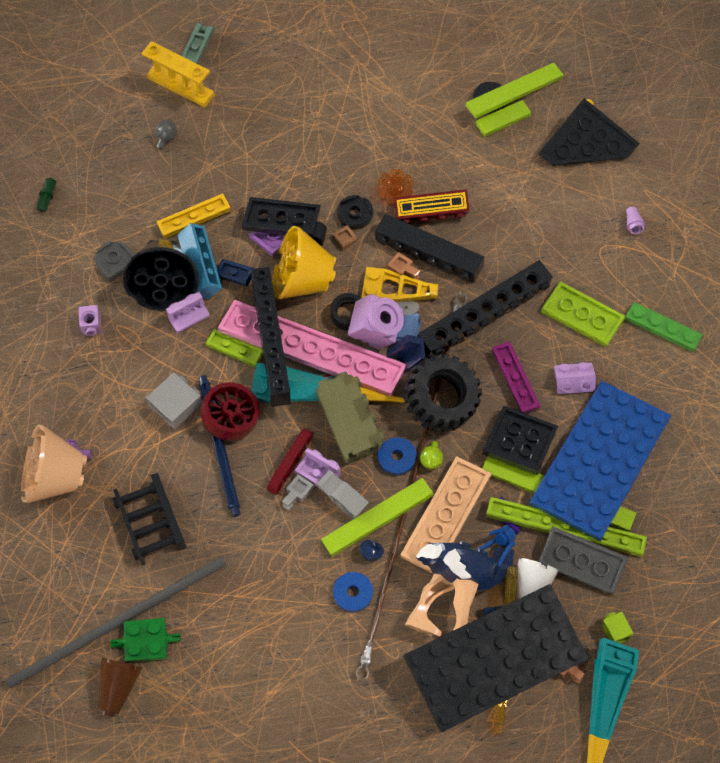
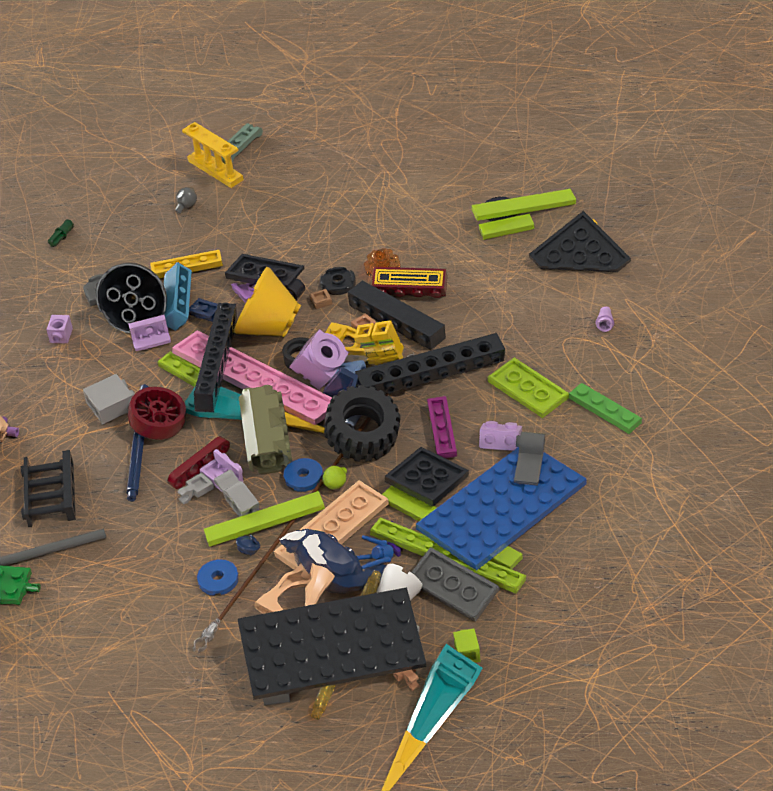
camera: 15 degrees right, 20 degrees down
(431, 295) = (379, 345): none -> yellow hips
(613, 397) = (530, 457): none -> dark grey door

